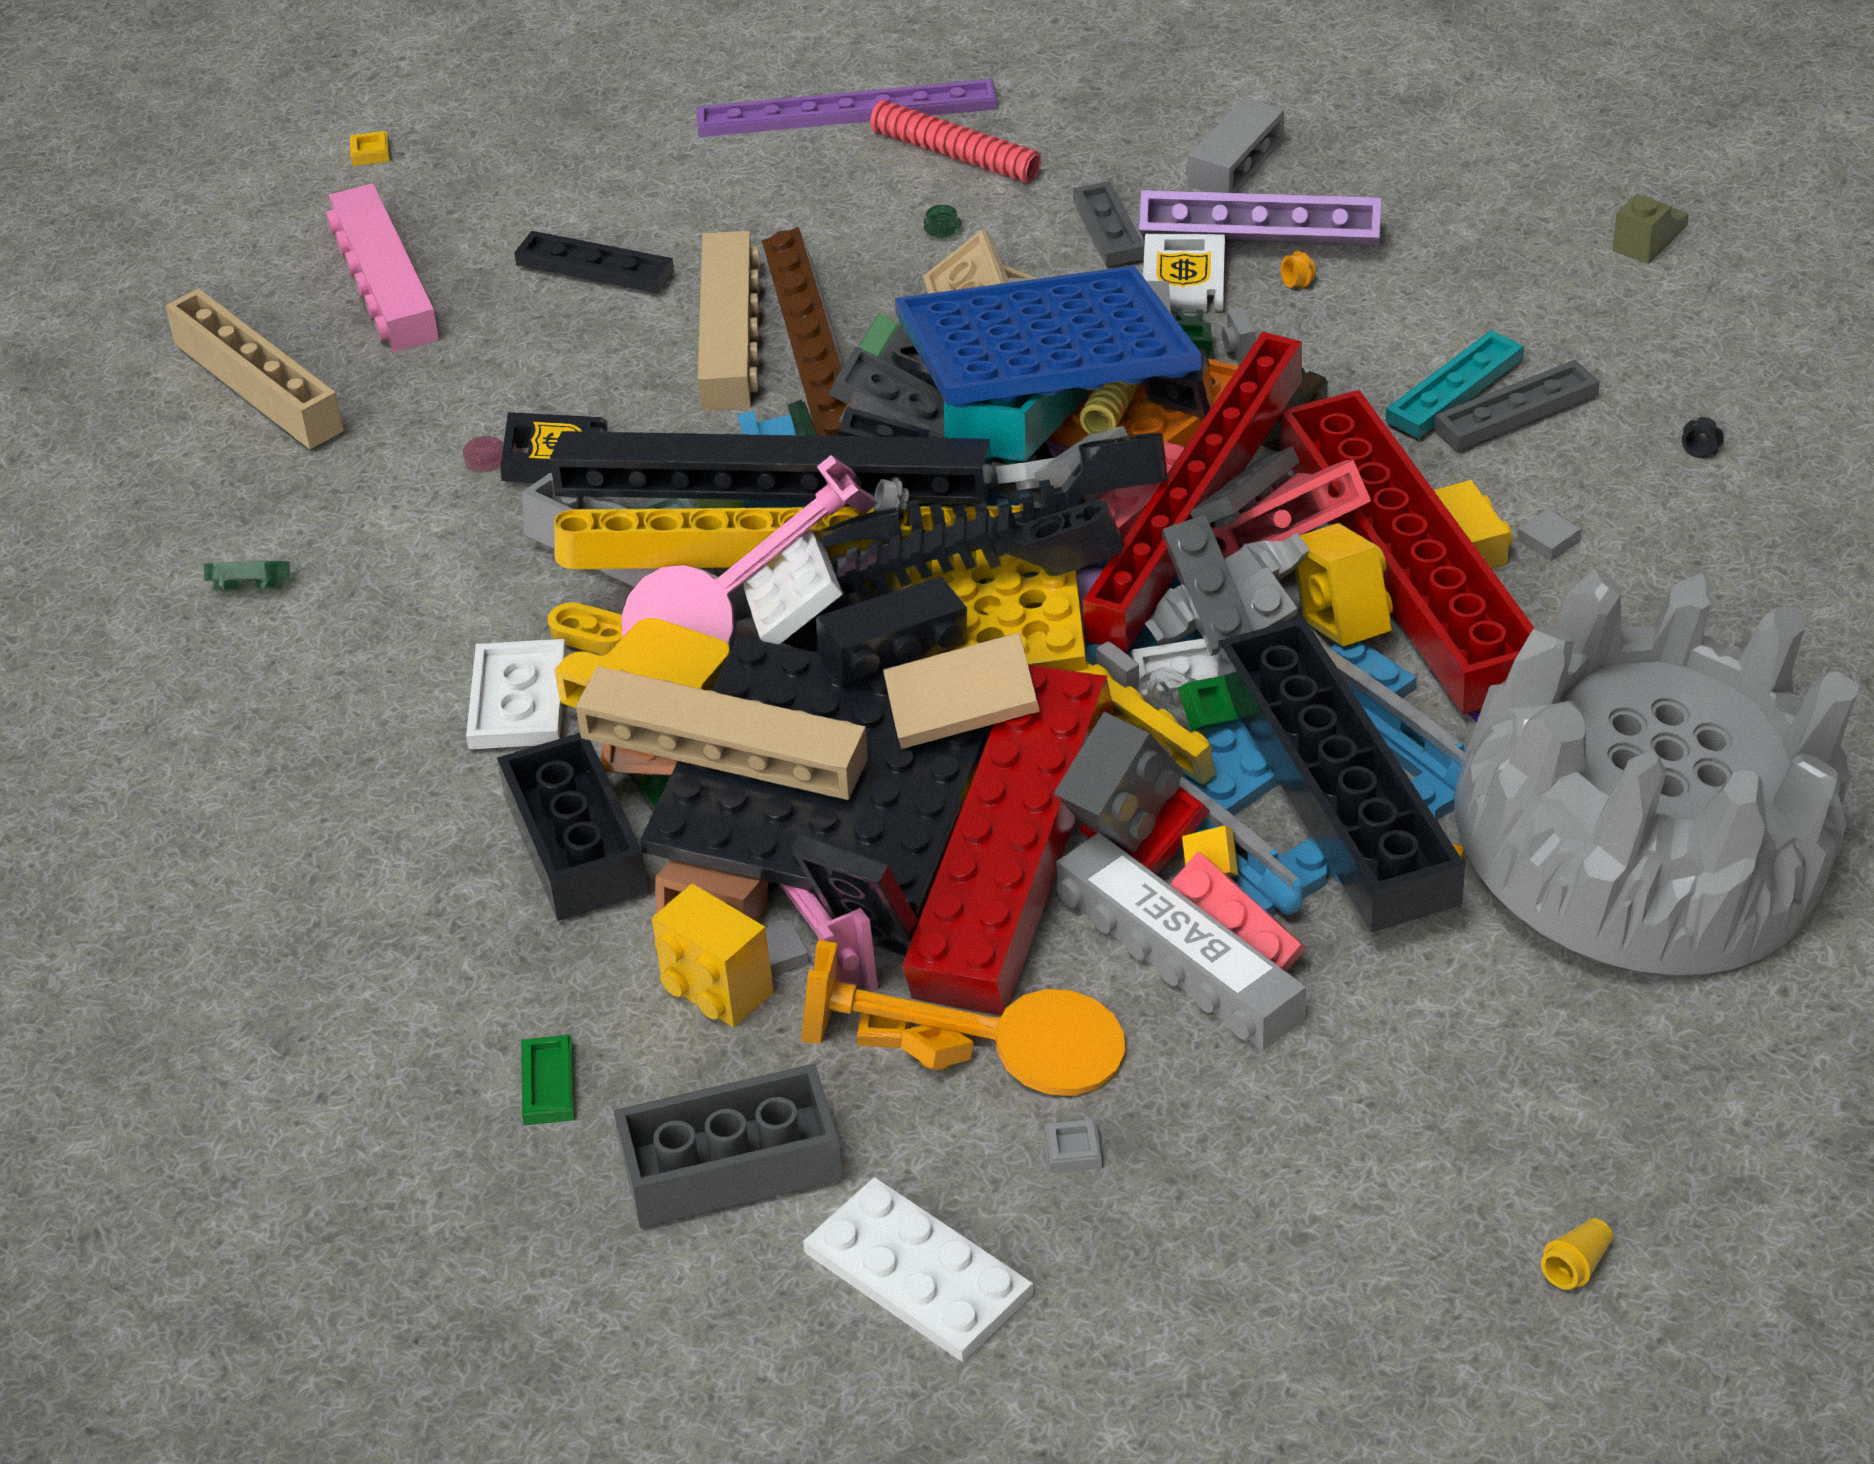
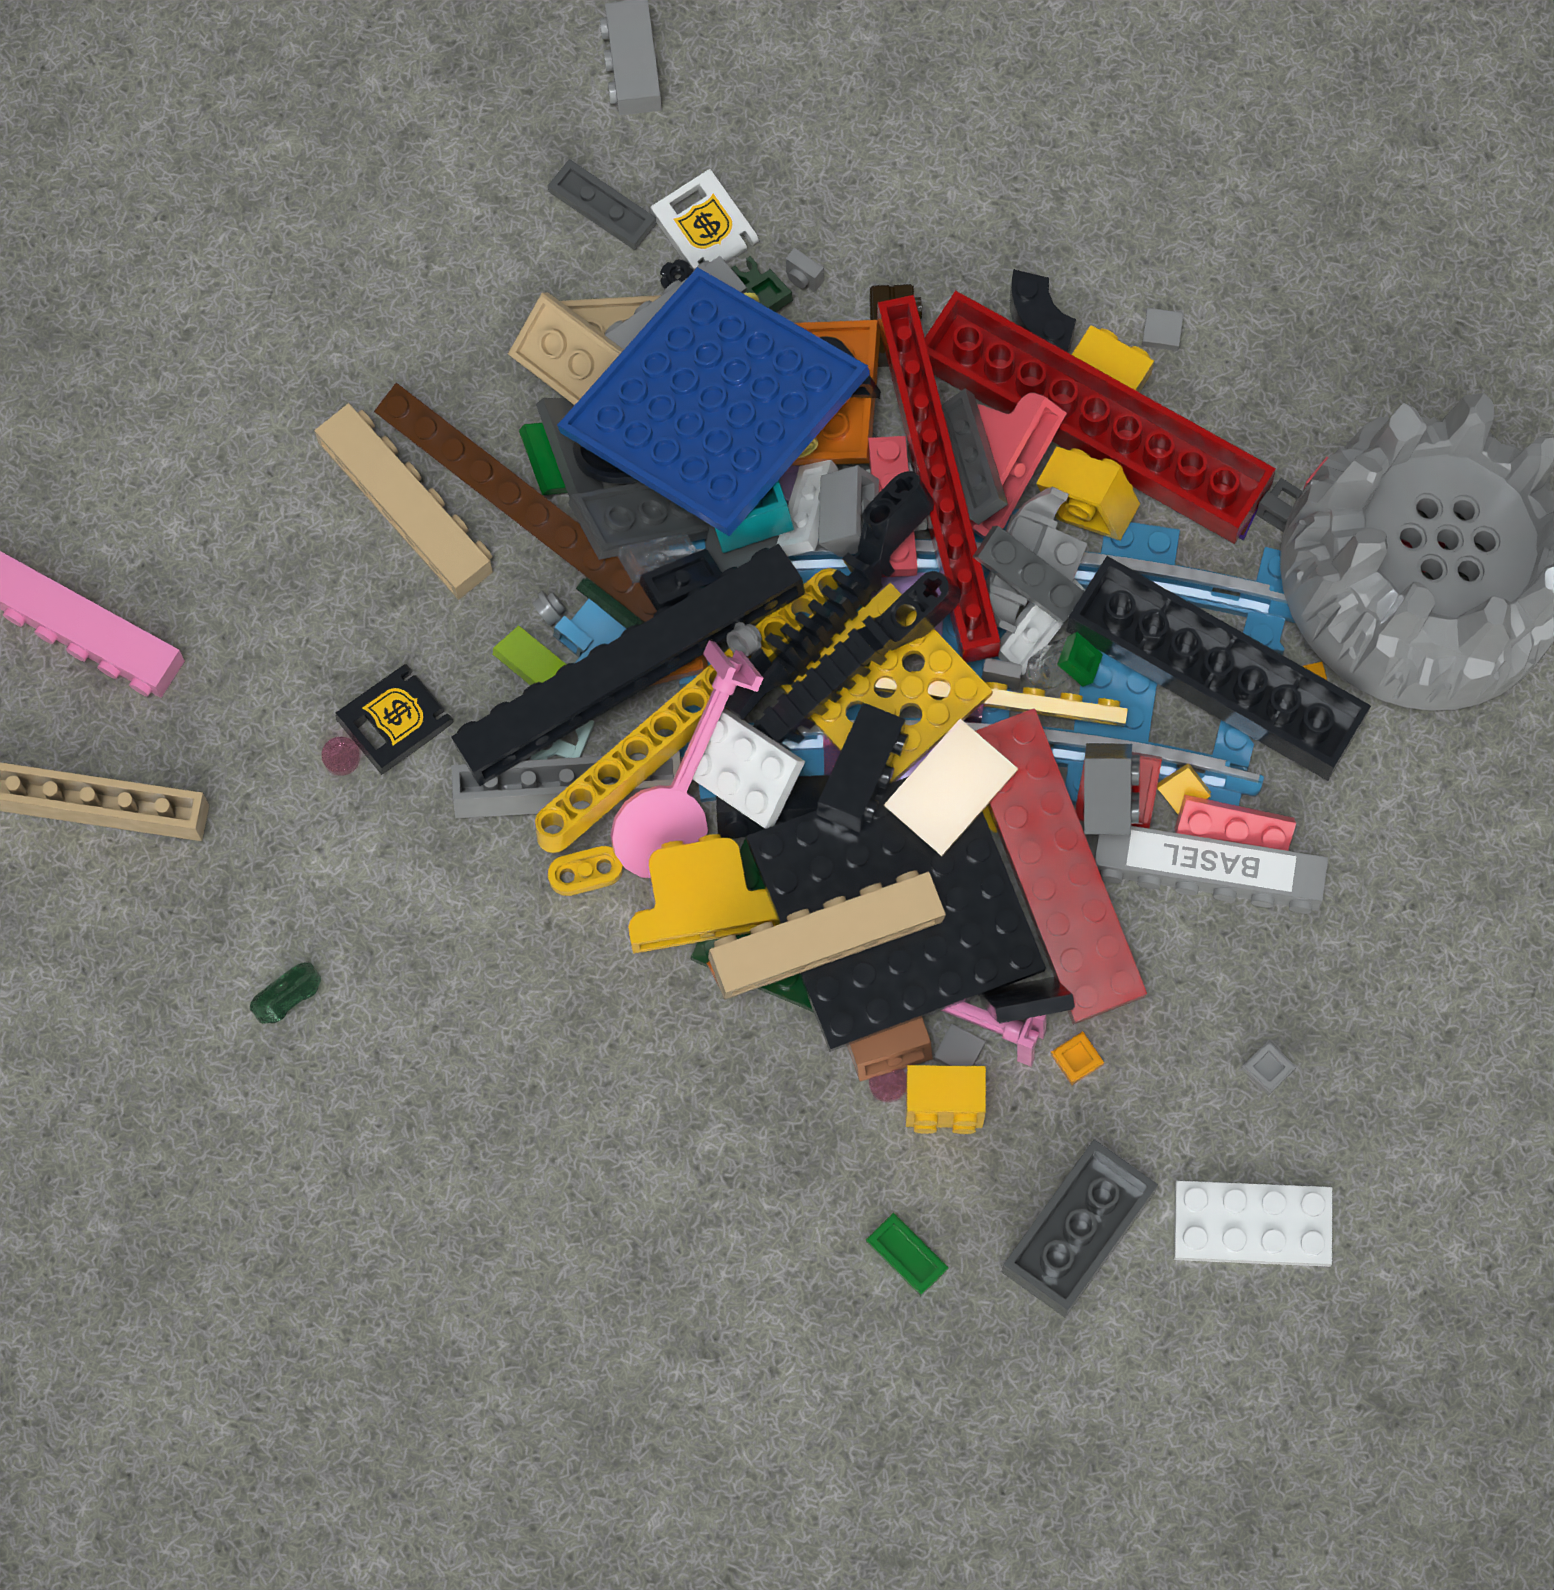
camera: 40 degrees left, 30 degrees up
(515, 694) = (590, 964): white plate -> none
(572, 826) = (748, 1054): black brick -> none
(594, 261) = (237, 504): black plate -> none
(842, 107) = (273, 196): medium lavender tile -> none
(936, 1046) = (1130, 1056): light orange plate -> none
(941, 221) = (467, 275): clear green plate -> none
(955, 141) = (403, 185): coral piece -> none
(1044, 1038) = (1190, 995): light orange piece -> none
(1263, 216) = (722, 133): lavender brick -> none
(1297, 270) = (785, 167): light orange plate -> none
(1435, 447) = (1035, 311): none -> black brick
(1454, 383) = (991, 218): teal plate -> none
(1516, 405) = (1050, 210): dark grey plate -> none
(1695, 444) = (1199, 165): black plate -> none

